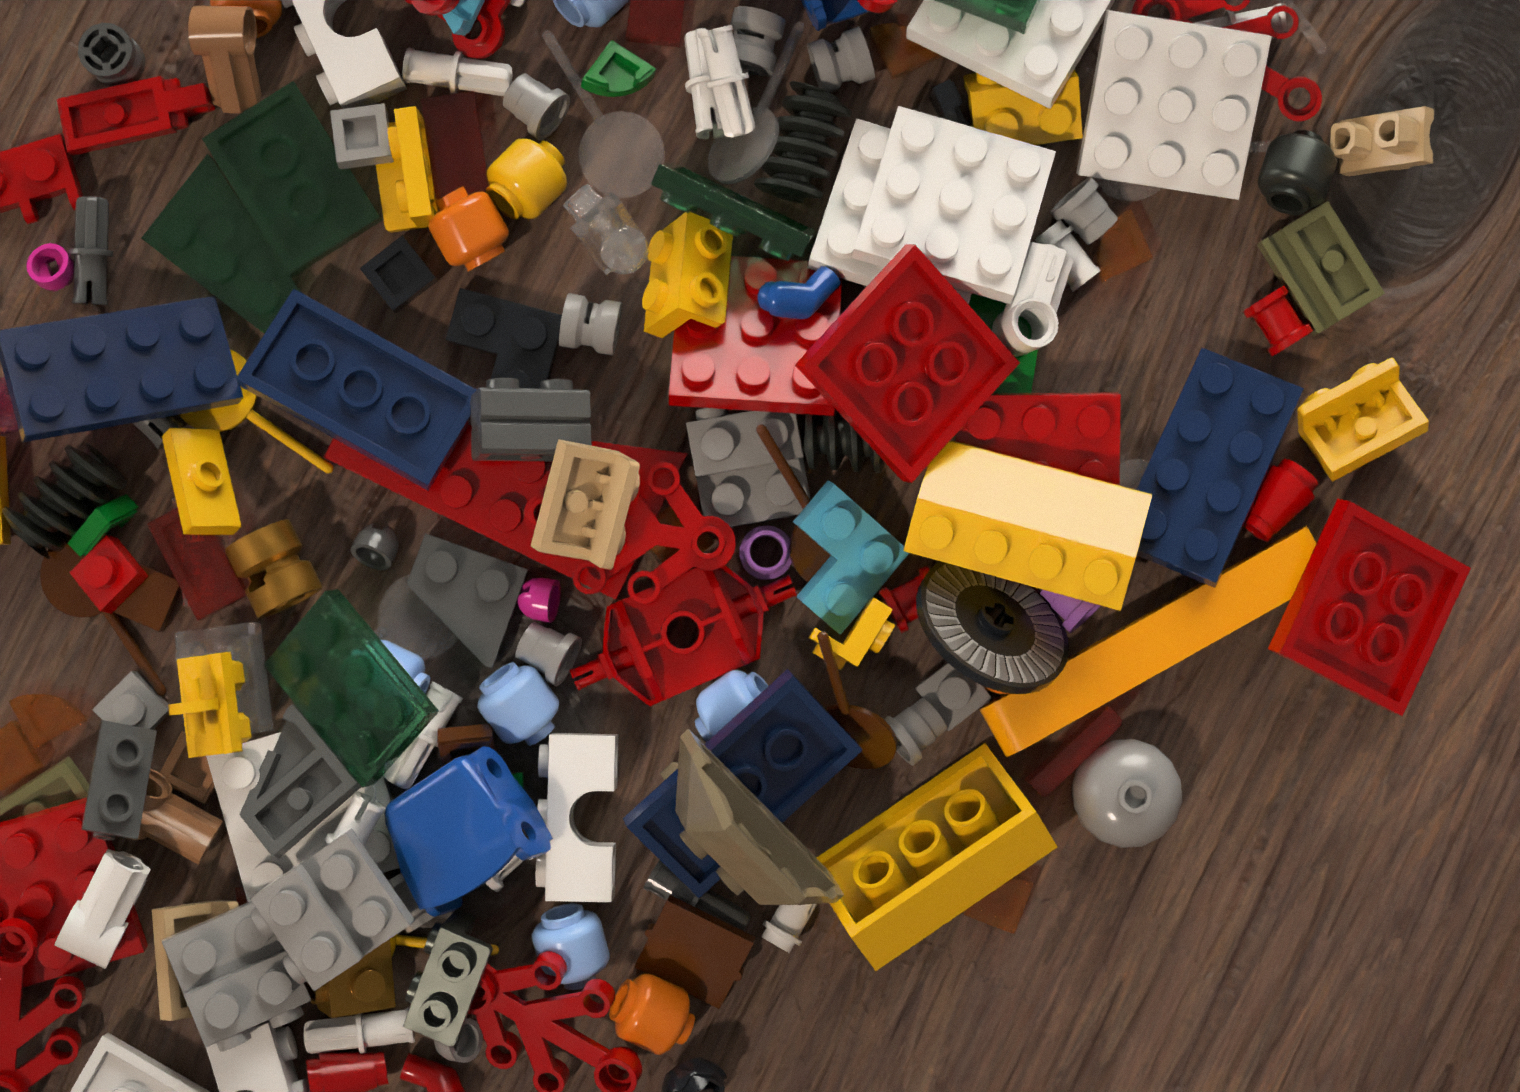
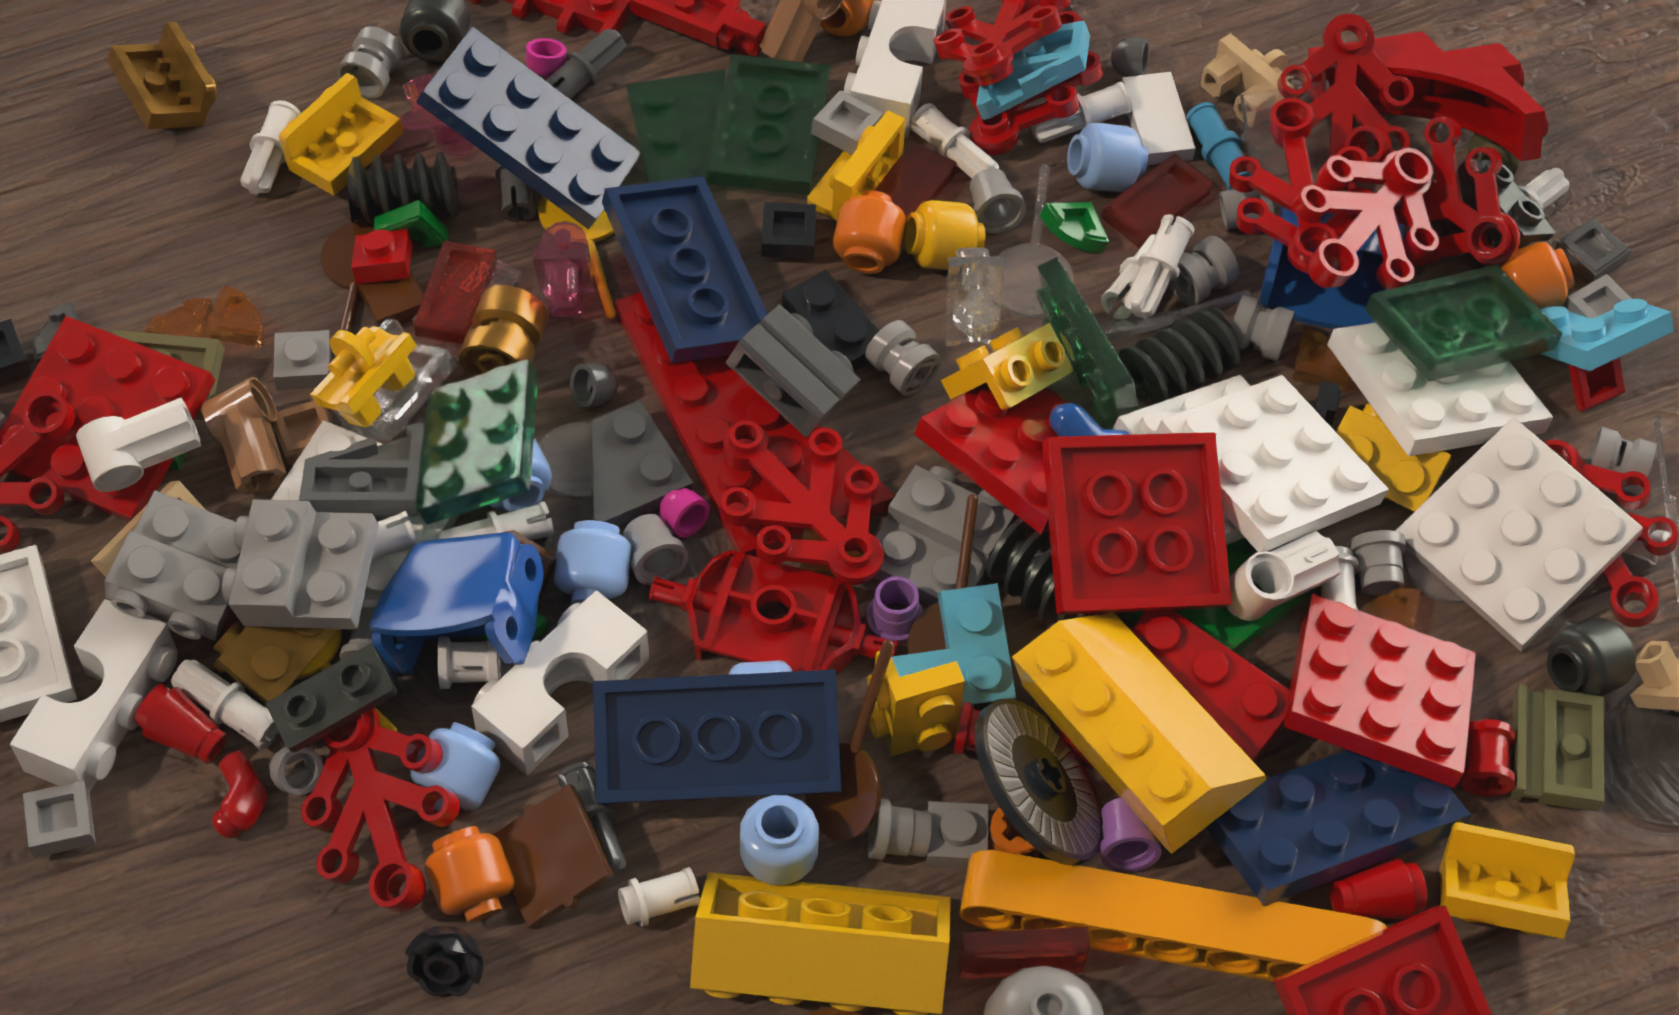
camera: 30 degrees right, 30 degrees down
(118, 781) = (242, 367): dark grey hinge -> none
(201, 481) = (507, 242): yellow plate -> none
(264, 471) = (564, 268): none -> clear pink hips
(586, 503) = (783, 437): tan bracket -> none
(743, 835) = (681, 758): dark tan wedge -> none
(862, 821) = (779, 839): none -> light blue head
(1170, 334) = (1382, 690): none -> plate

